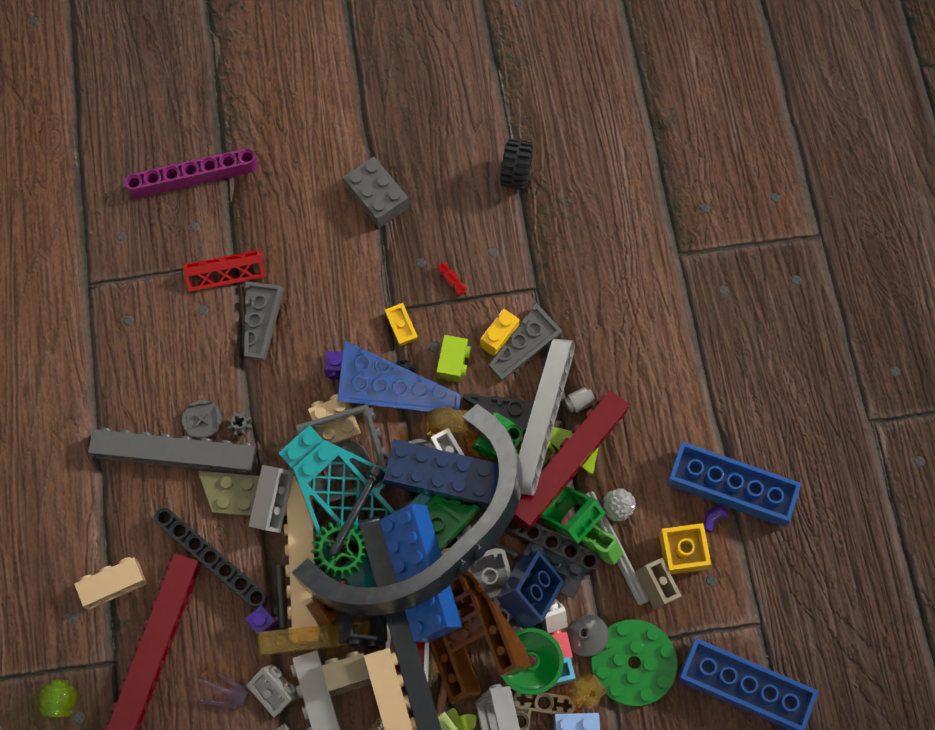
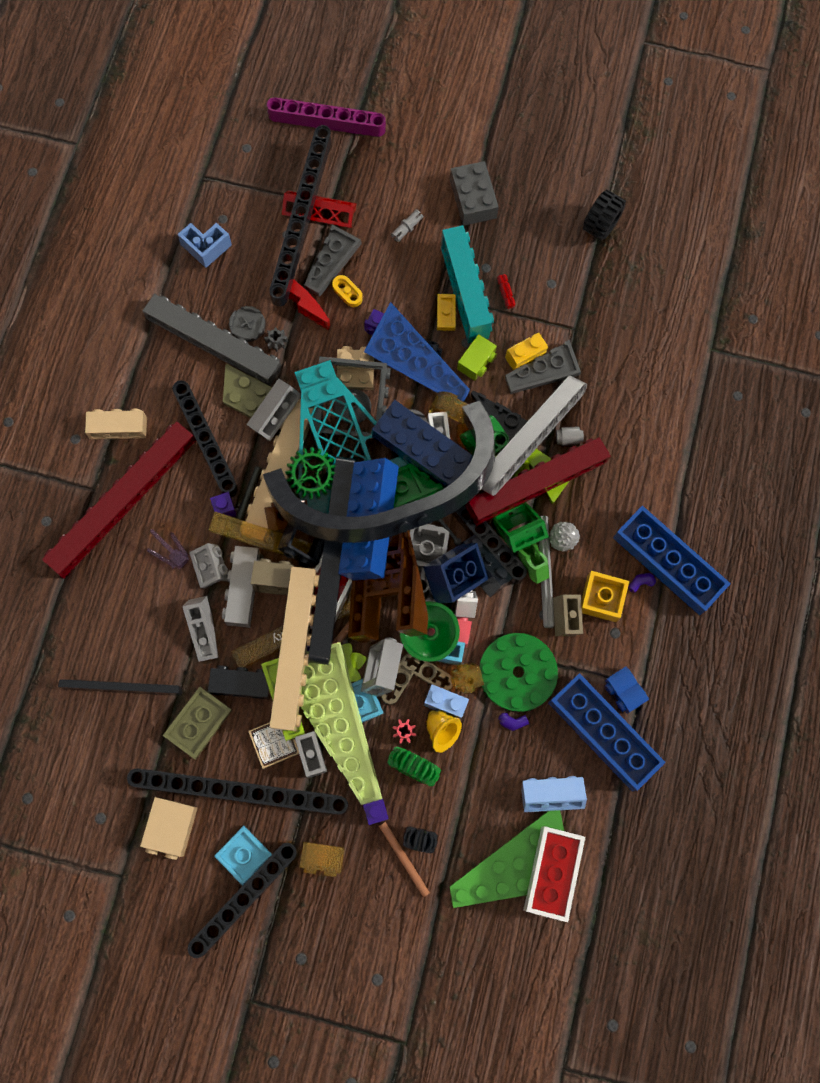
camera: 20 degrees right, 5 degrees up
(57, 699) = (34, 498): clear neon green piece -> none
(123, 358) = (205, 246): none -> medium blue brick
(212, 294) = (300, 222): none -> black beam
(255, 374) = (308, 305): none -> red slope
(292, 343) = (348, 292): none -> yellow plate
(322, 252) = (407, 225): none -> light grey pin
(374, 476) = (366, 425): black piece -> none
(409, 288) = (466, 283): none -> teal brick
(594, 641) = (489, 640): dark grey dish -> none
(651, 718) = (511, 723): none -> dark purple arm
(747, 634) = (626, 690): none -> blue brick

